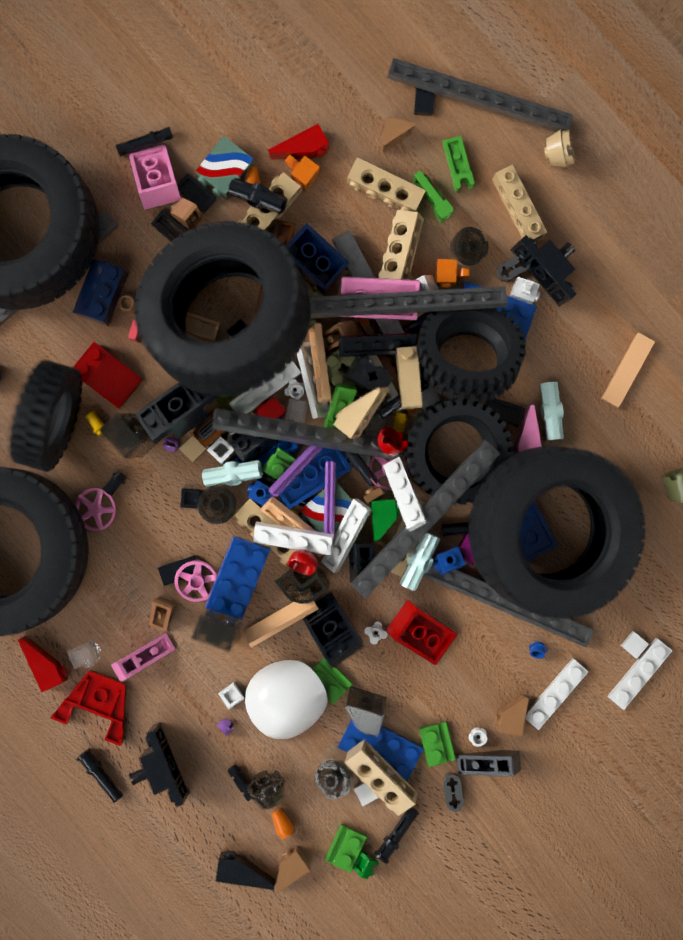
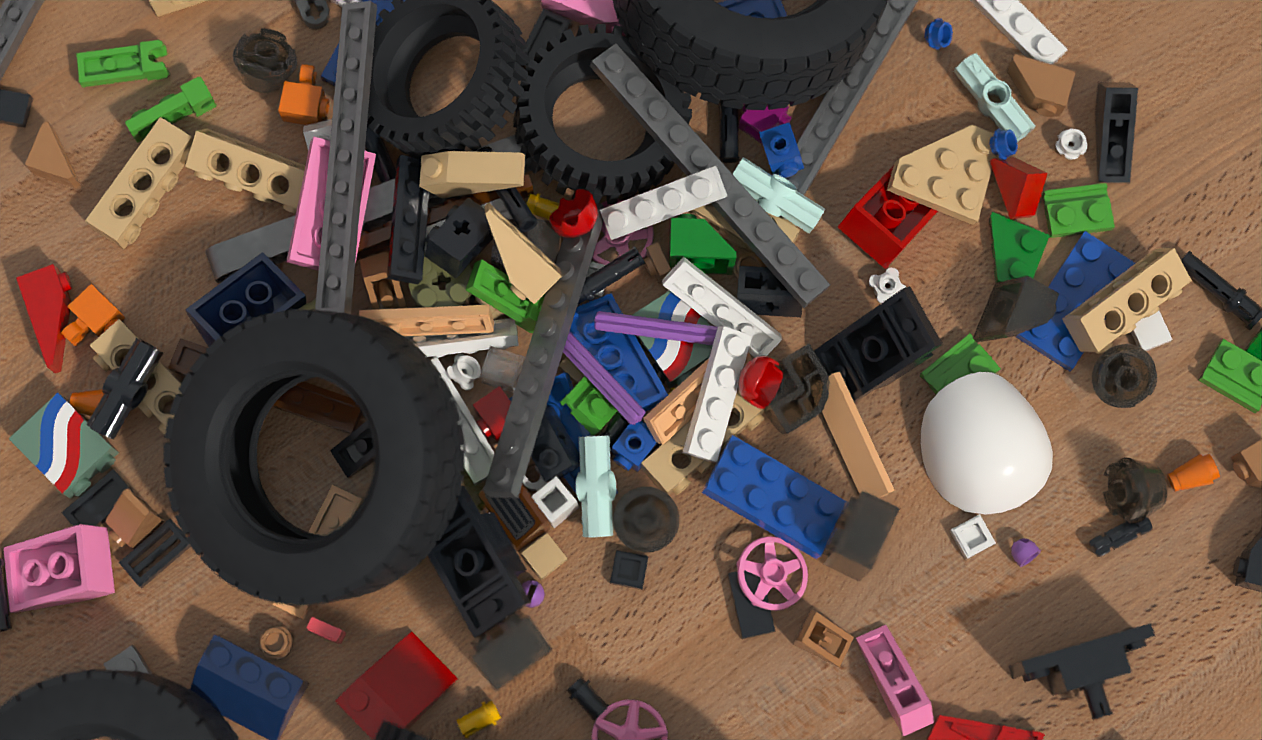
camera: 80 degrees left, 10 degrees down
(406, 708) = (1015, 248): none -> green wing
(447, 707) = (1019, 186): none -> red slope
(449, 664) = (947, 174): none -> tan plate
(457, 791) = (1158, 186): dark grey beam -> none
(470, 695) = (1003, 143): none -> blue plate
(491, 697) = (982, 82): none -> light aqua piece

